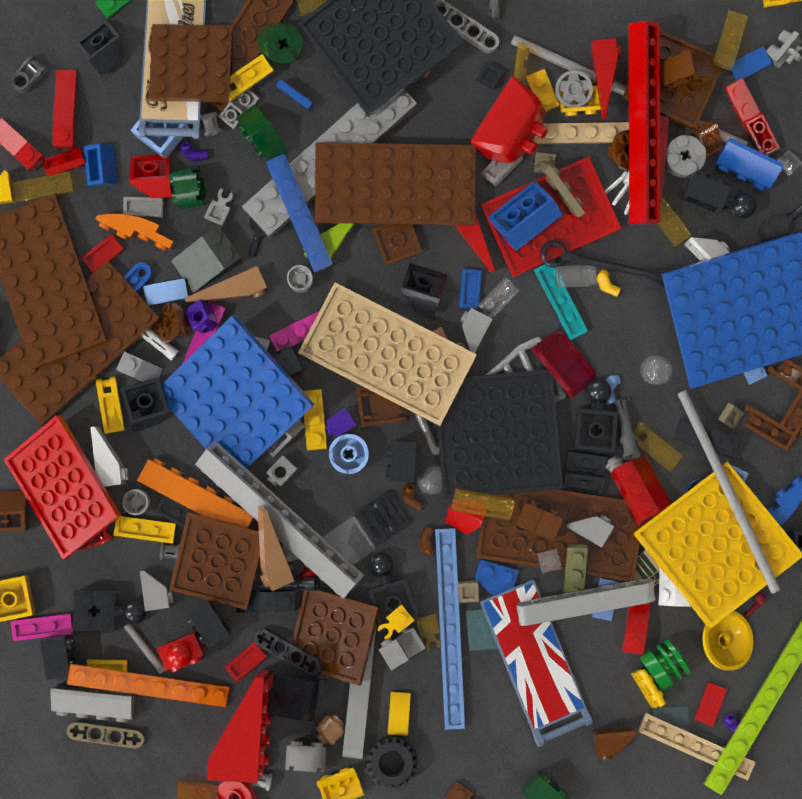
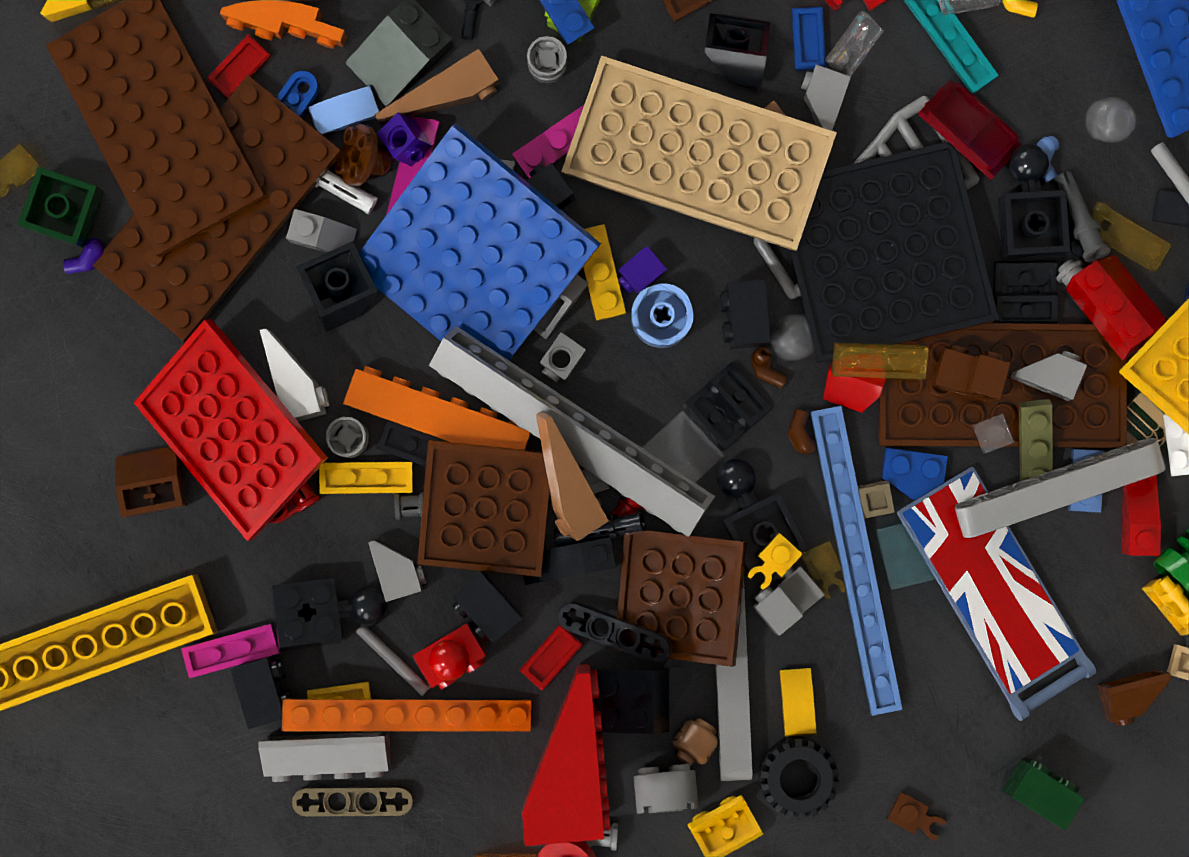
camera: 10 degrees left, 0 degrees up
(110, 405) = (285, 297): yellow plate -> none
(382, 409) = (701, 239): reddish brown container -> none

